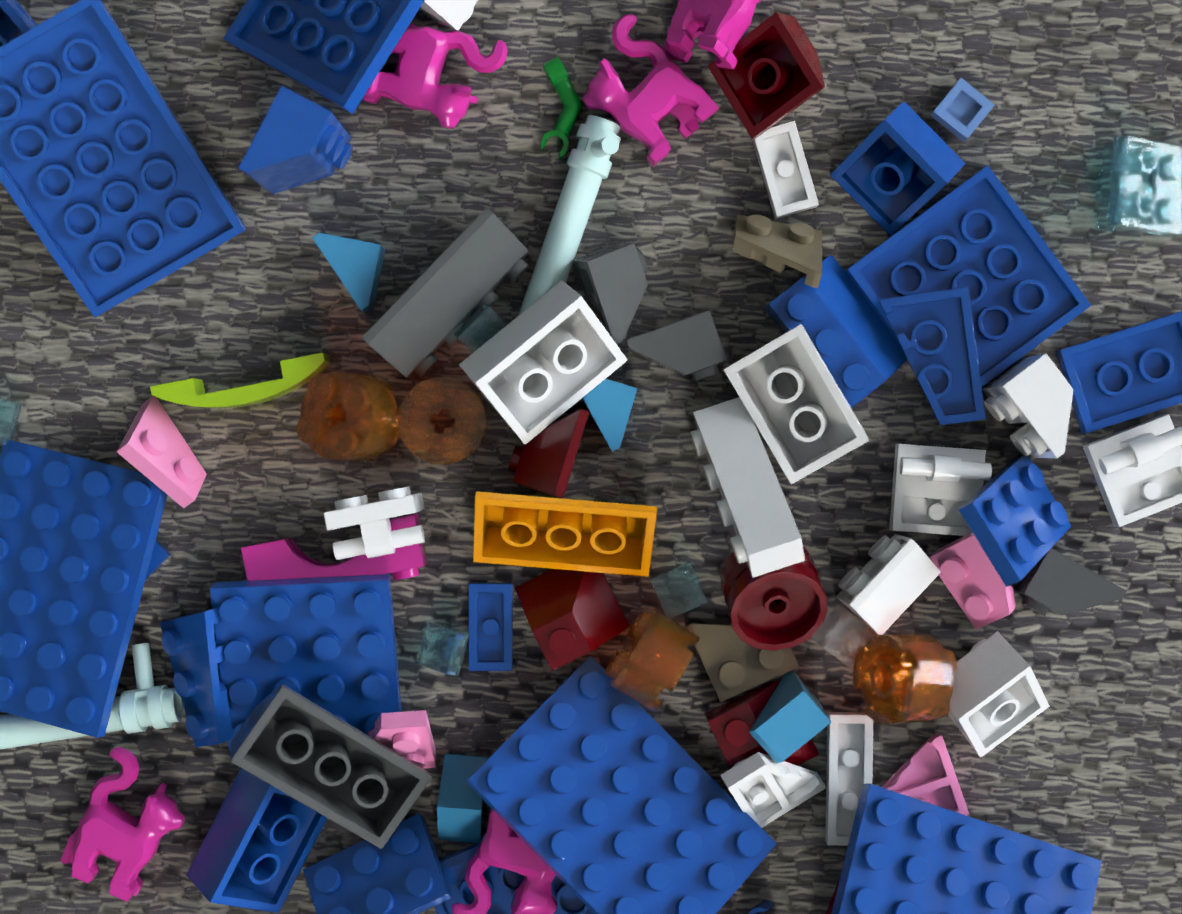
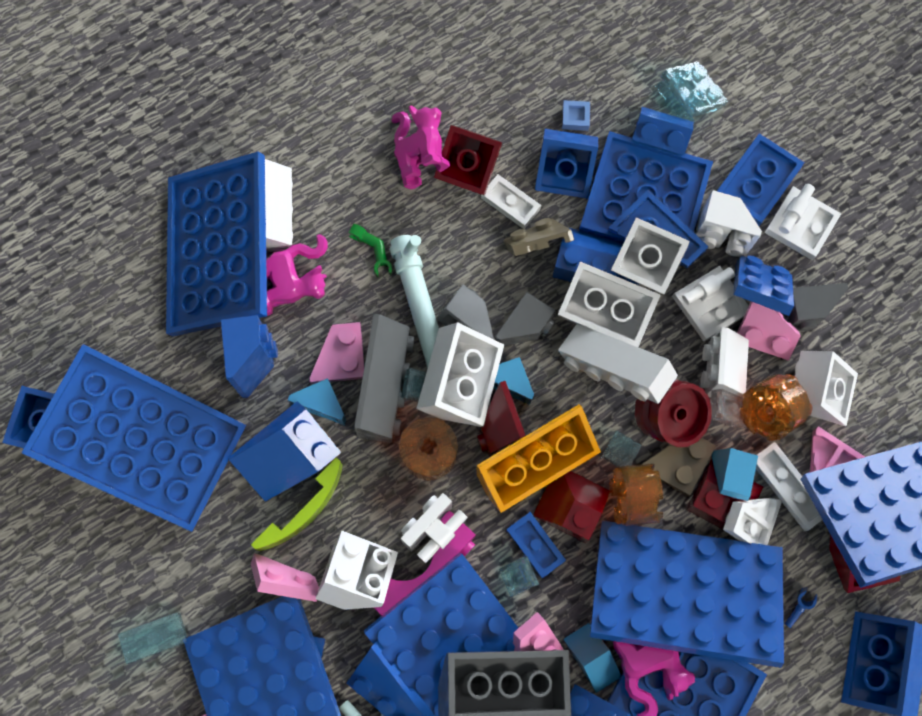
camera: 40 degrees left, 15 degrees down
(251, 511) = (356, 573): none -> white slope
(267, 301) = (284, 453): none -> blue slope
(349, 416) = (375, 481): clear orange brick -> none
(423, 220) = (340, 355): none -> bright pink wing
(660, 94) = (420, 206): dark pink animal -> none
(893, 382) = (650, 256): none -> white slope
(1058, 217) = (663, 130): none -> blue brick

